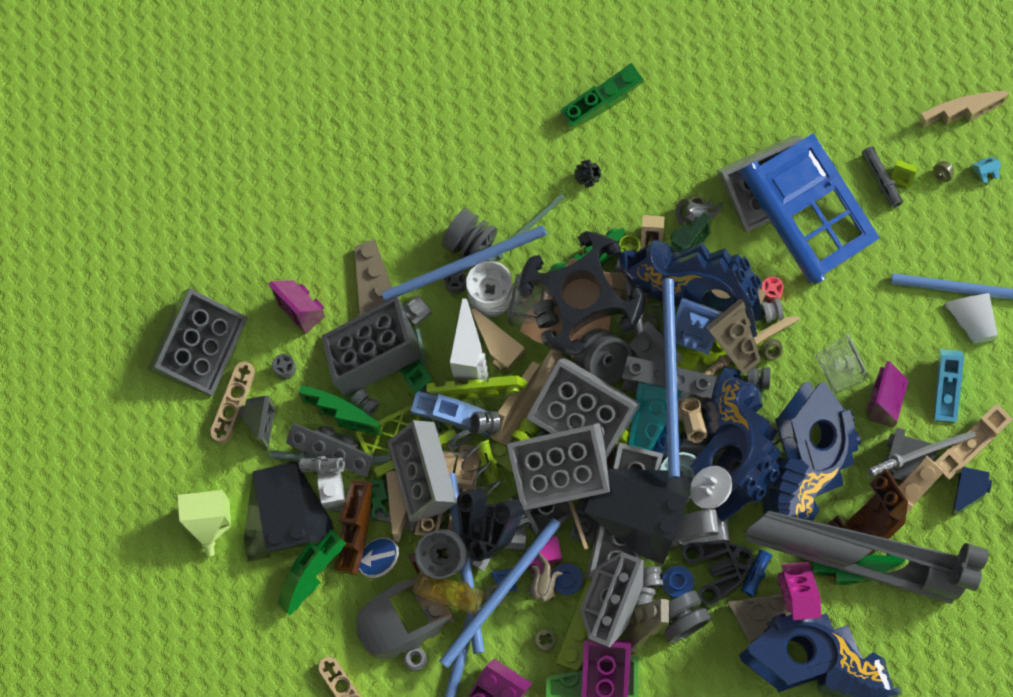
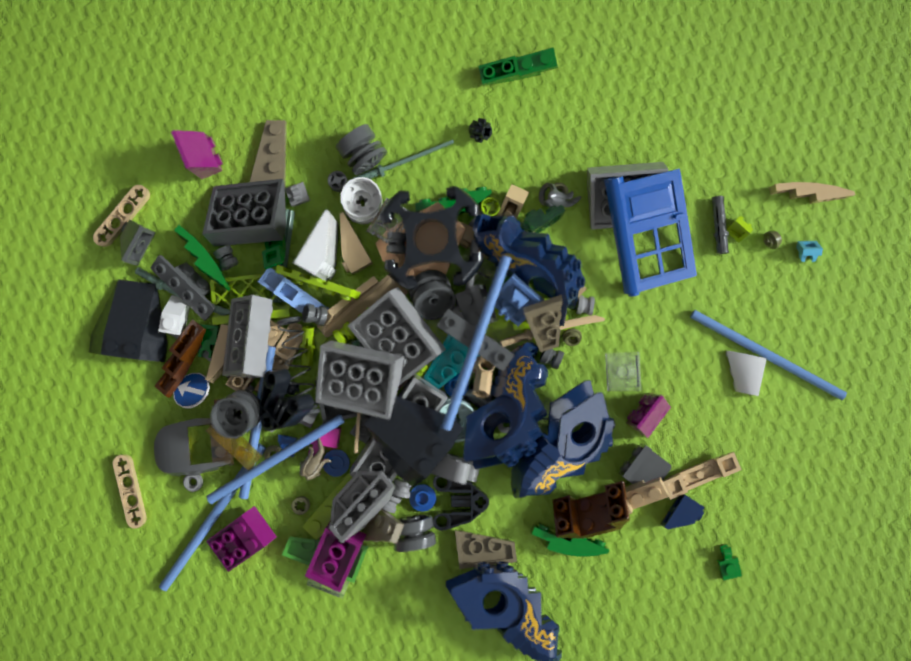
camera: 10 degrees right, 15 degrees up
(197, 342) = (108, 155): dark grey slope -> none
(205, 516) = (61, 307): yellowish green piece -> none
(282, 362) = (168, 201): dark grey wheel -> none
(302, 576) = (127, 381): green slope -> none
(322, 464) = (171, 298): light grey pin -> none
(464, 263) = (347, 172): medium blue piece -> none
(711, 487) = (474, 445): white piece -> none
(756, 572) = (487, 515): blue pin -> none
(772, 284) = (595, 286): coral wheel -> none
(800, 591) = (514, 554): dark pink brick -> none
(897, 460) = (635, 474): light grey sword -> none
(927, 573) = (615, 567): dark grey panel -> none
(948, 385) = (702, 419): medium azure slope -> none

